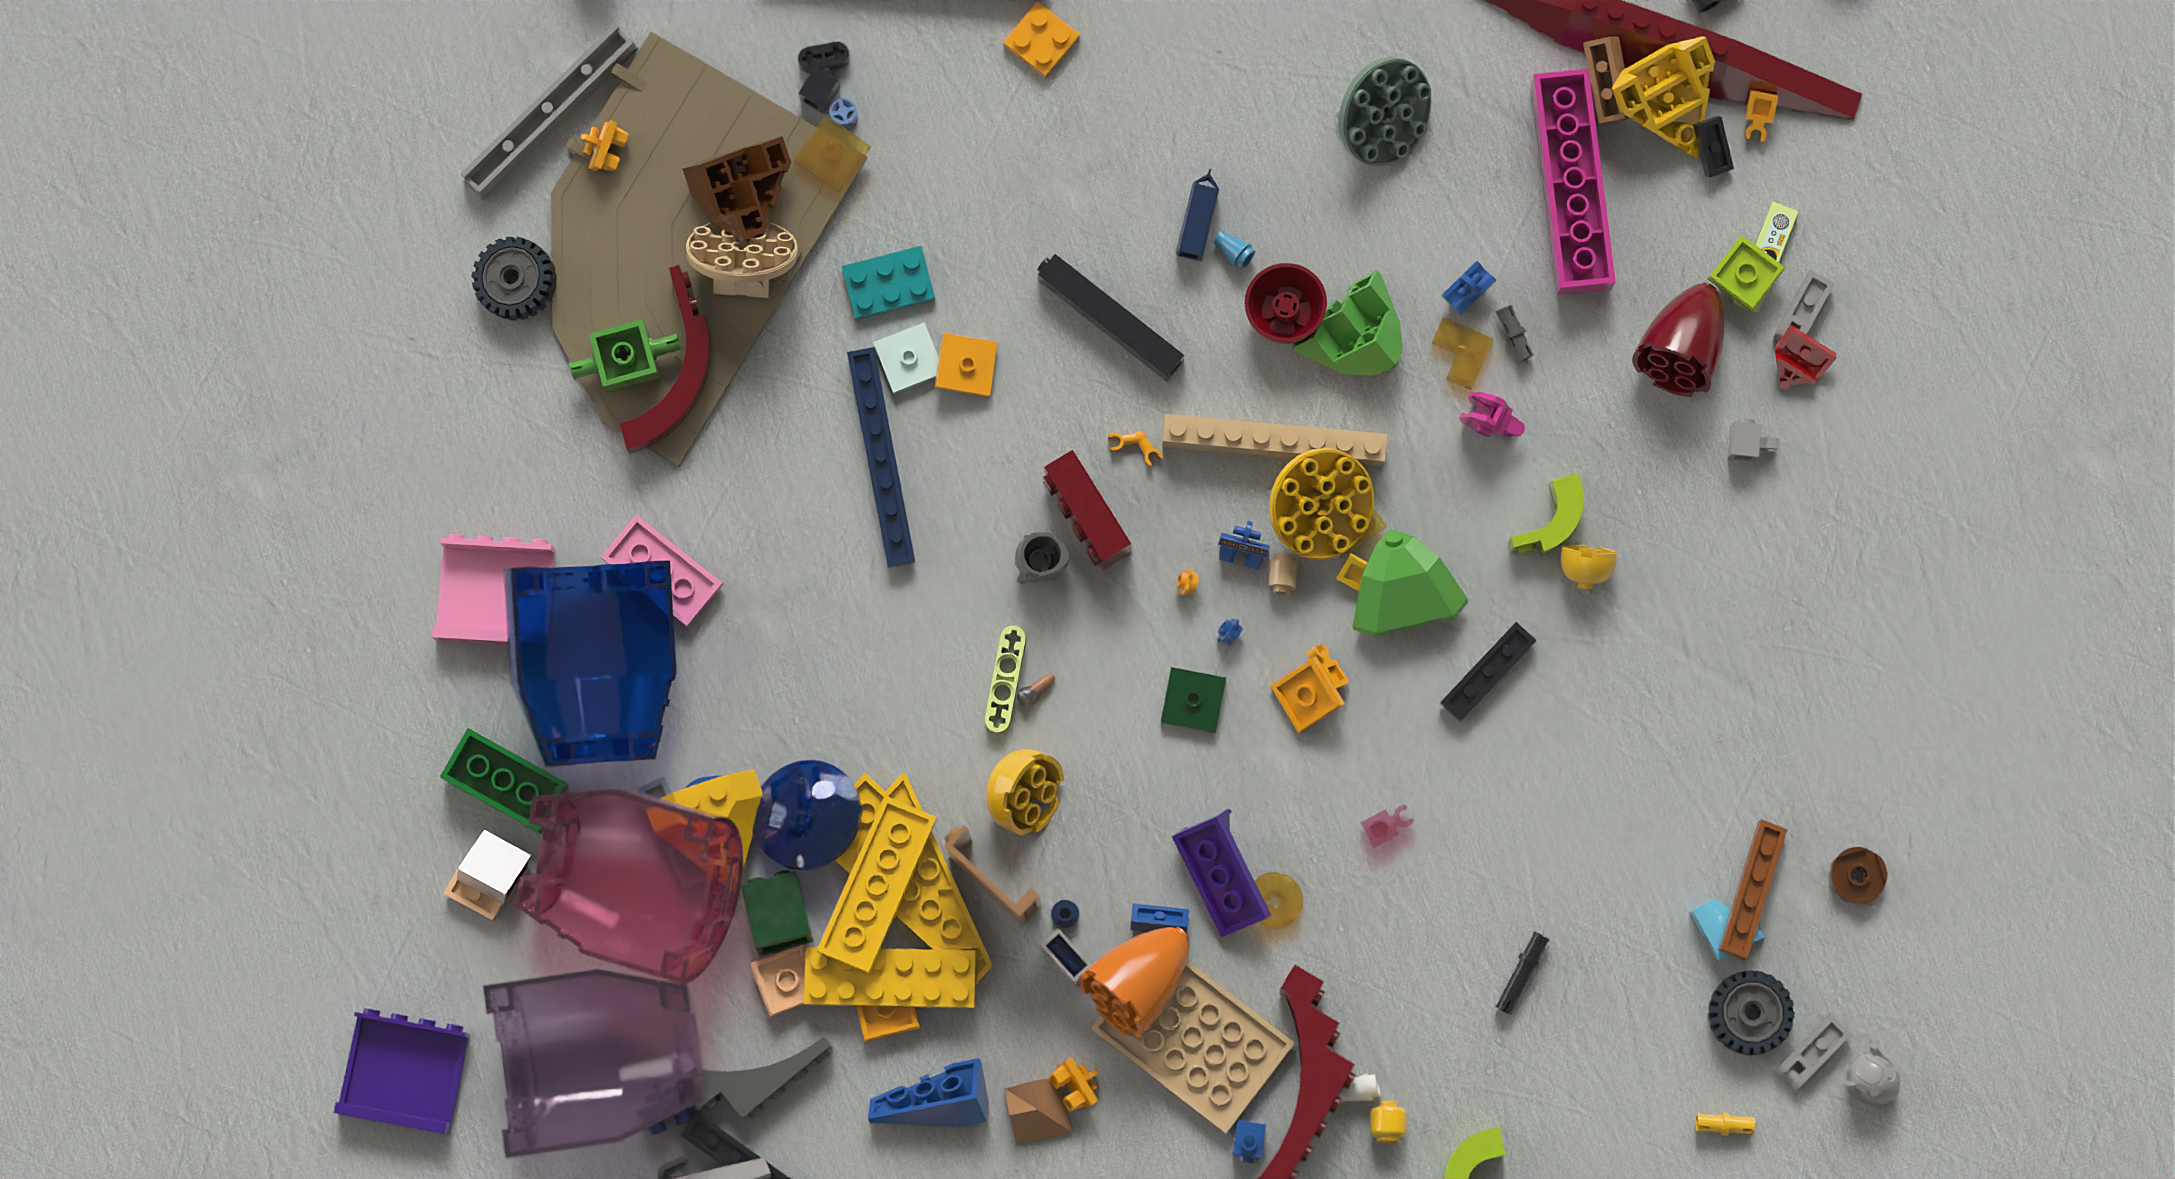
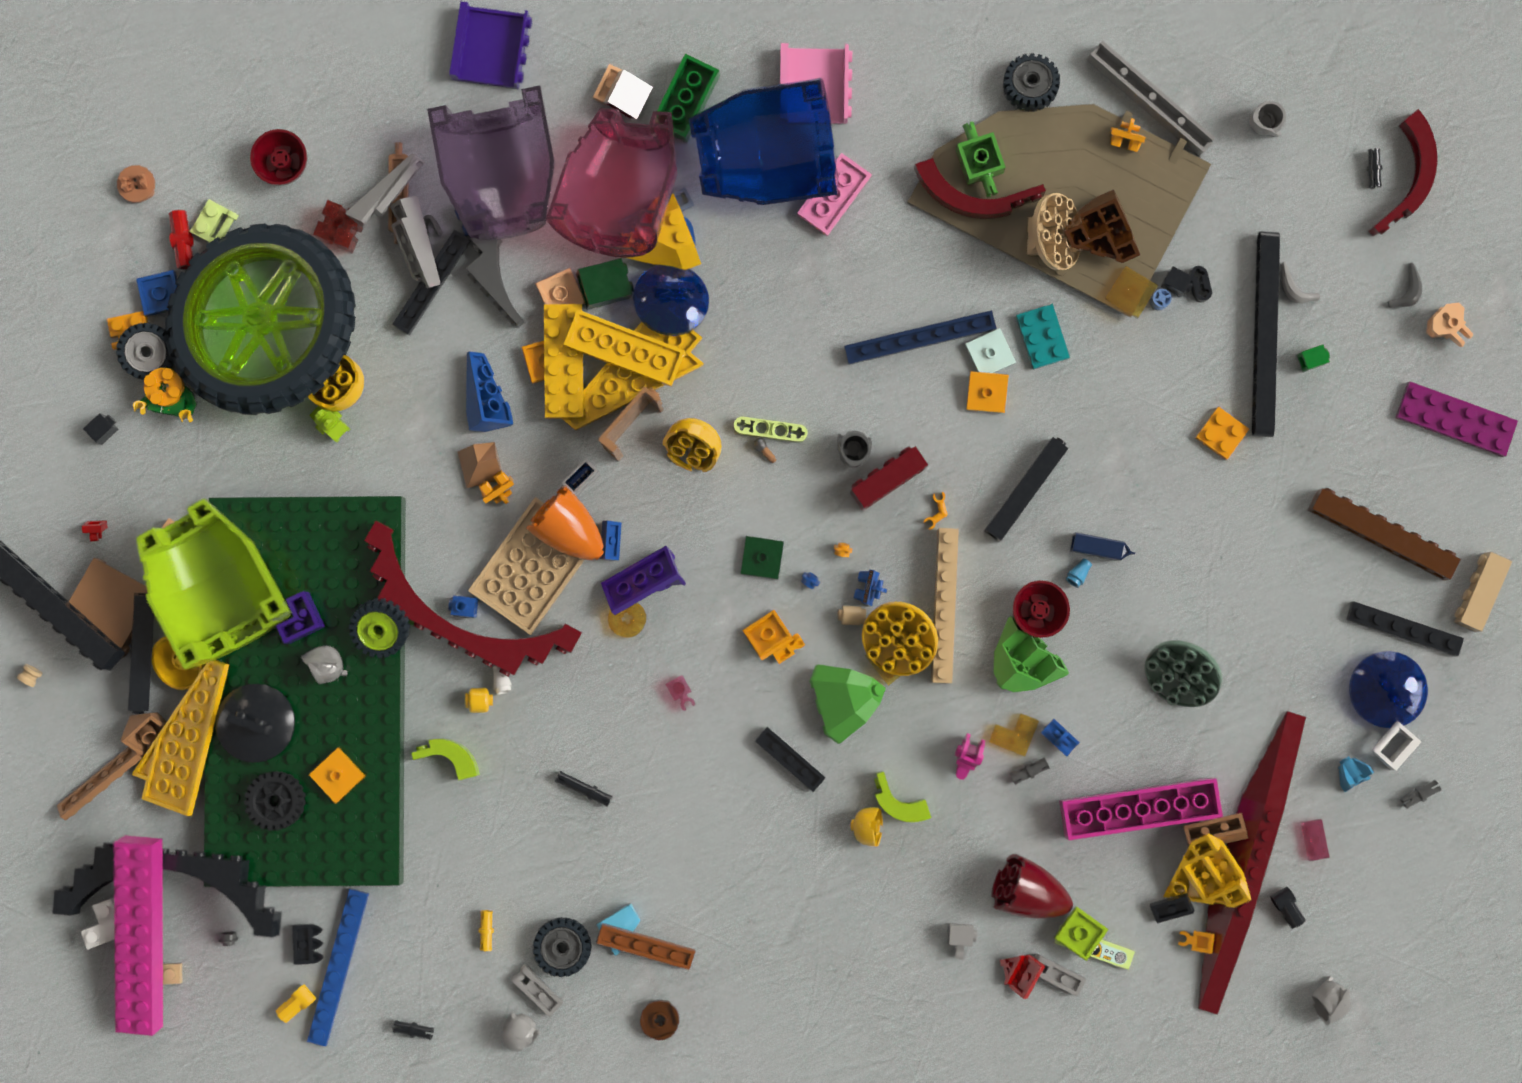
camera: 85 degrees right, 5 degrees up
(1069, 922) = (612, 483): dark blue plate -> none
(1352, 571) = (855, 662): yellow plate -> none

